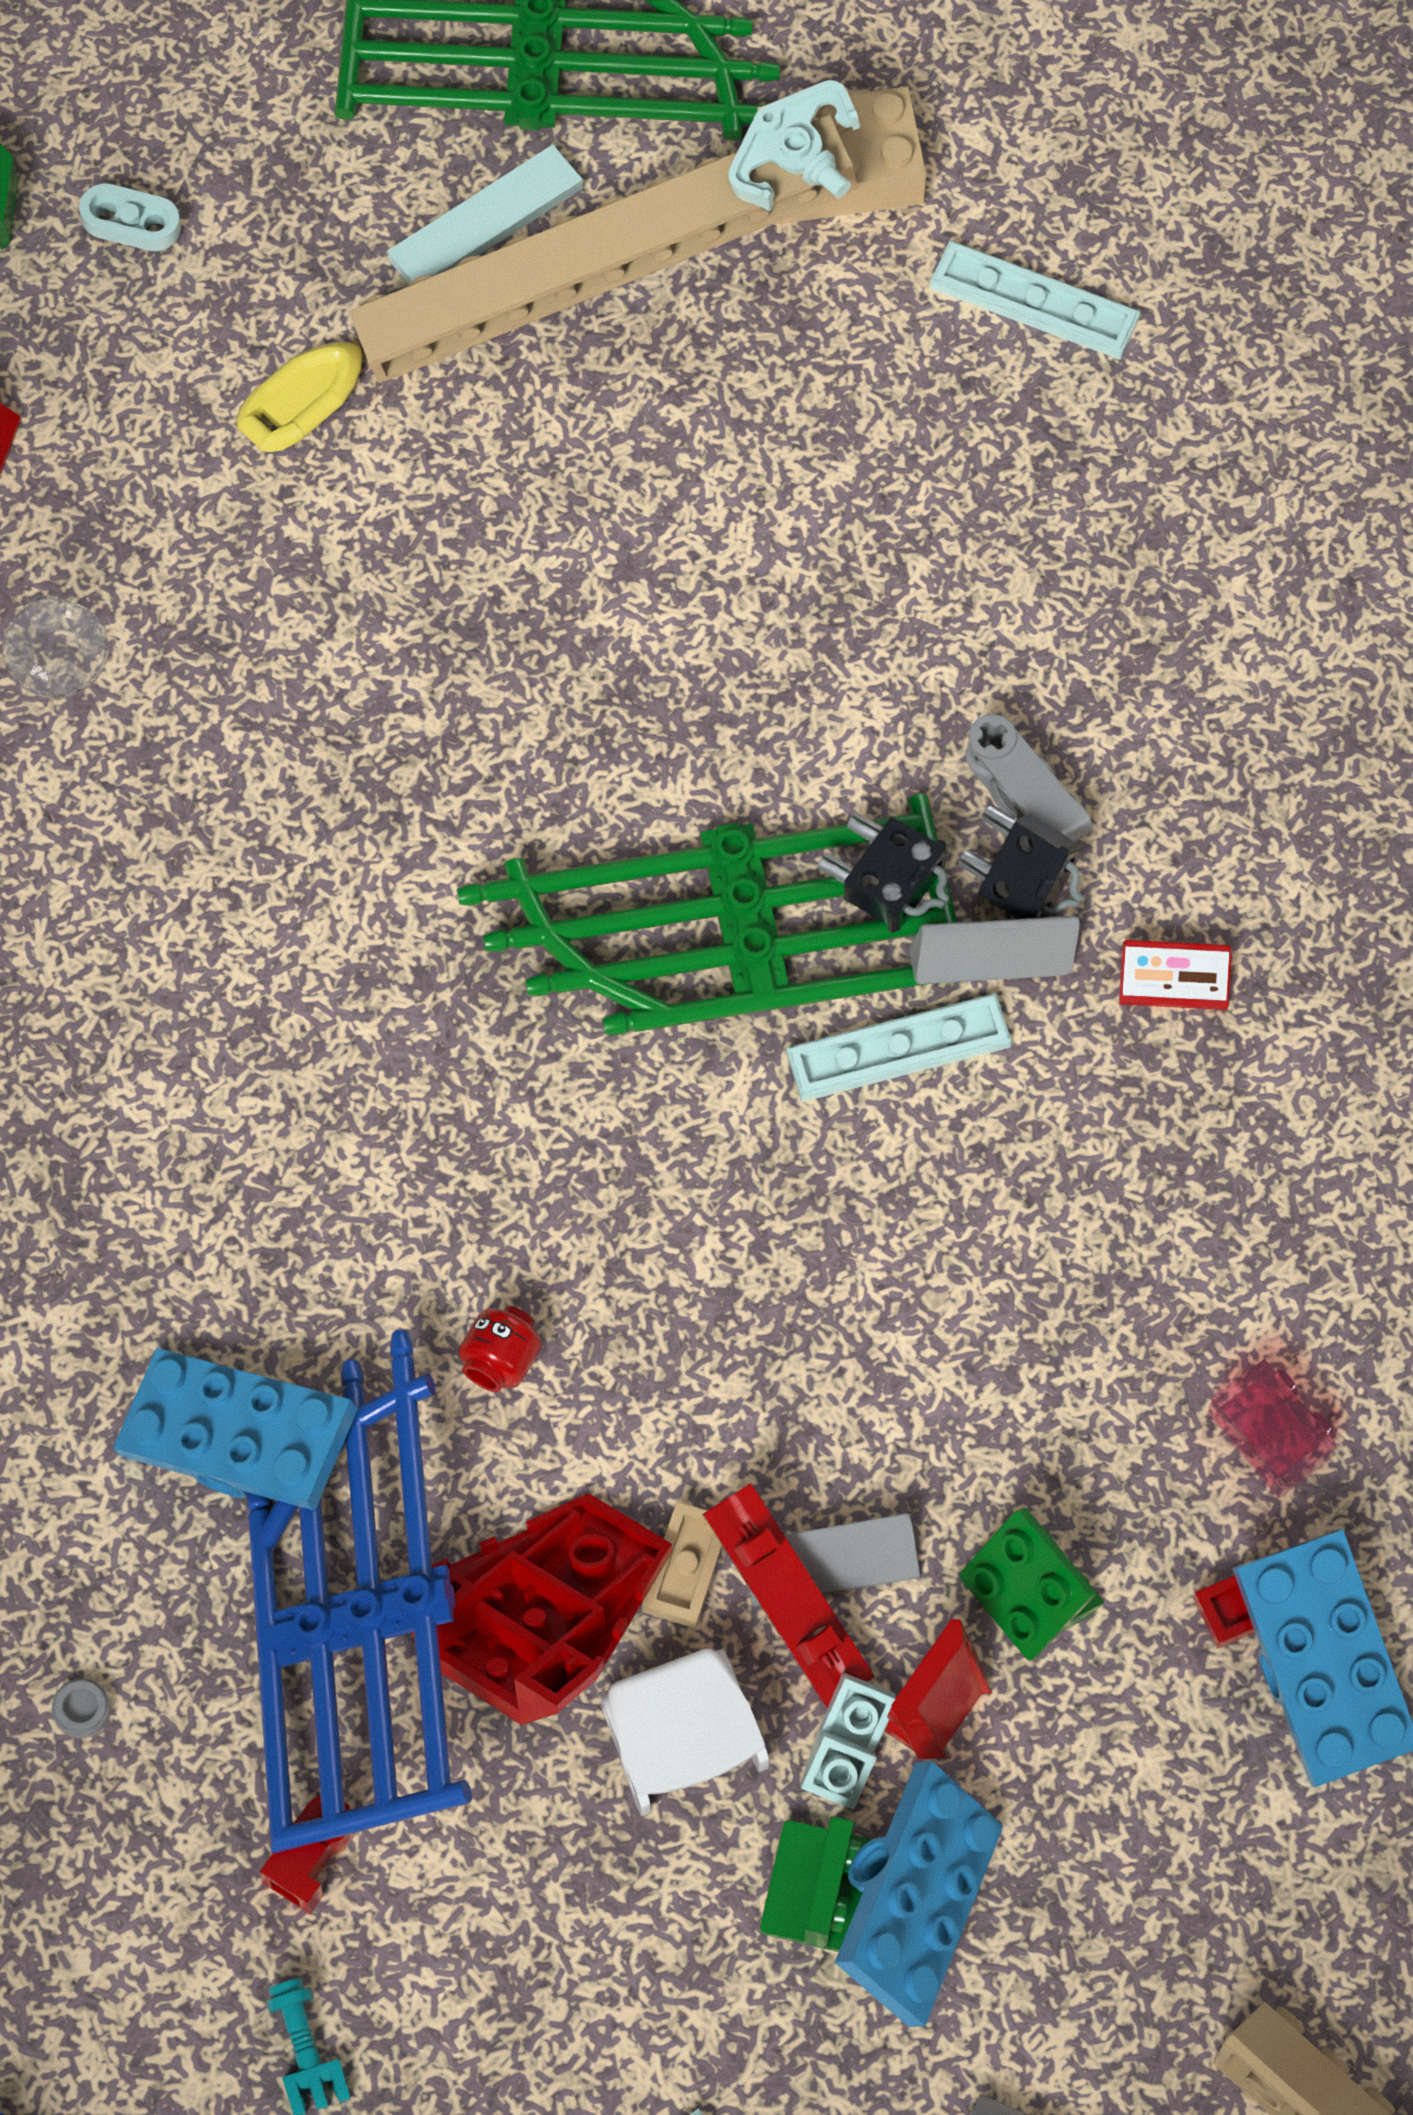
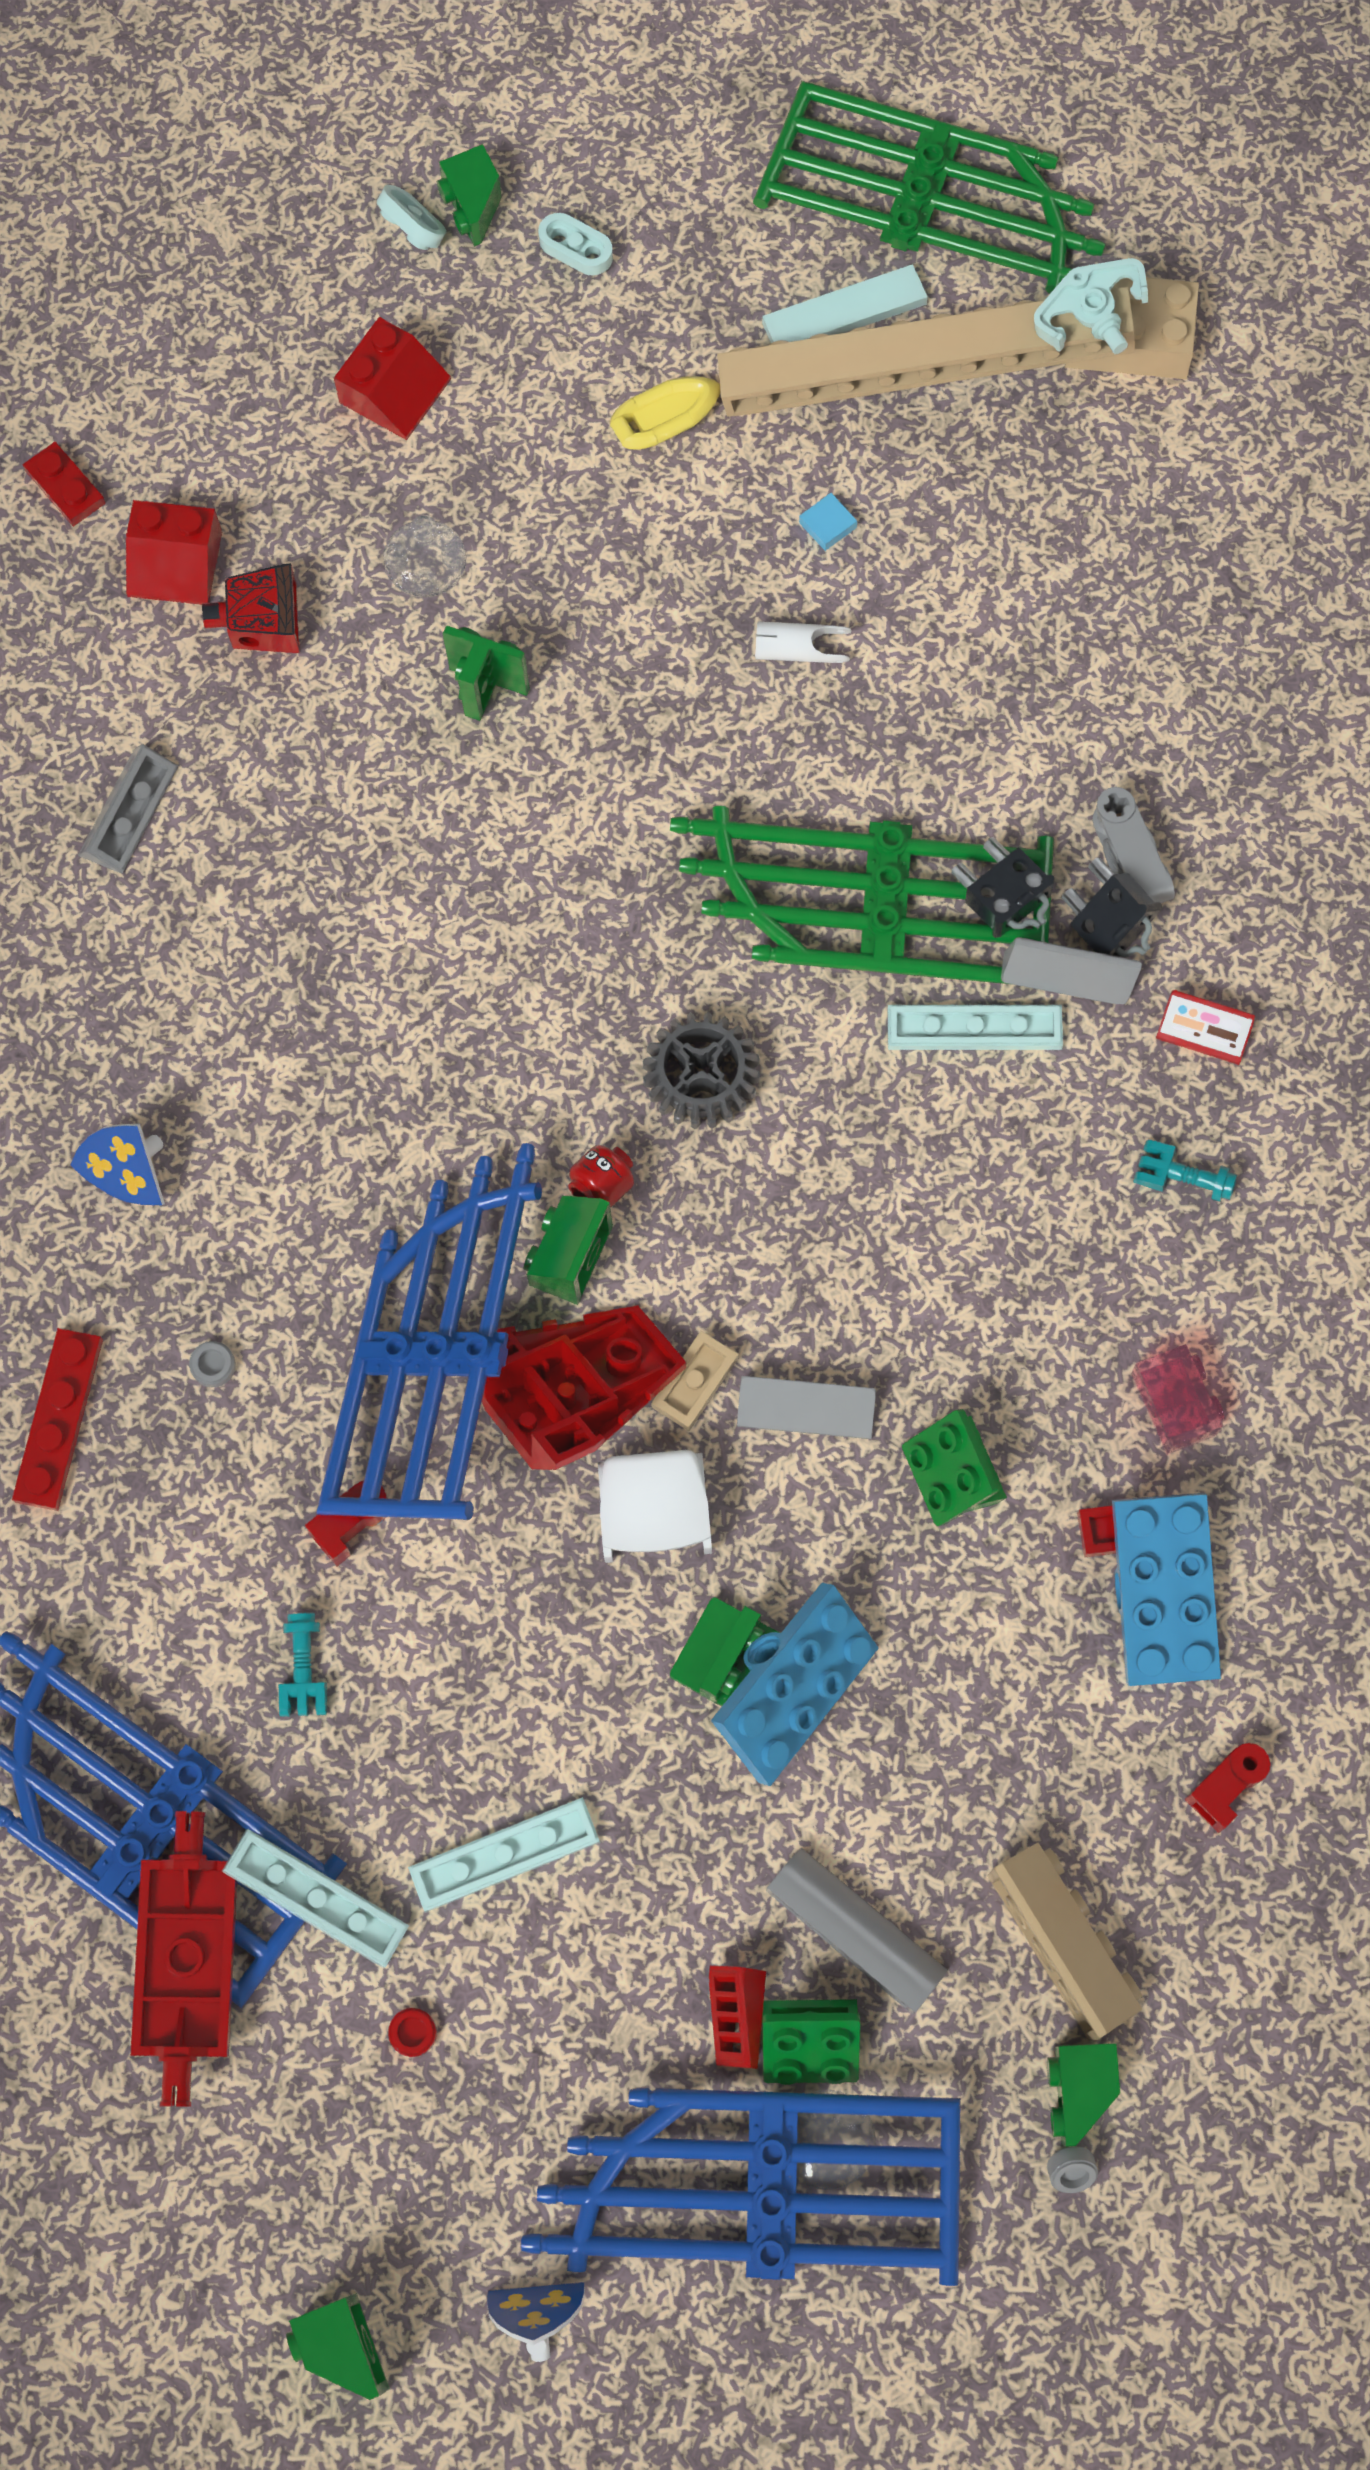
camera: 20 degrees right, 5 degrees up
(171, 760) = (482, 666): none -> green bracket
(235, 1429) = (385, 1185): dark azure plate -> none
(486, 1442) = (570, 1247): none -> green slope
(540, 481) = (828, 521): none -> medium azure tile
(543, 637) = (794, 642): none -> white piece
(546, 1162) = (689, 1083): none -> flat silver gear
(786, 1591) = (764, 1426): red hinge -> none
(847, 1741) = (778, 1549): light aqua slope -> none
(938, 1694) = (857, 1533): red slope -> none
(1035, 299) = (1251, 474): light aqua tile -> none
(1175, 1156) = (1164, 1167): none -> teal hinge

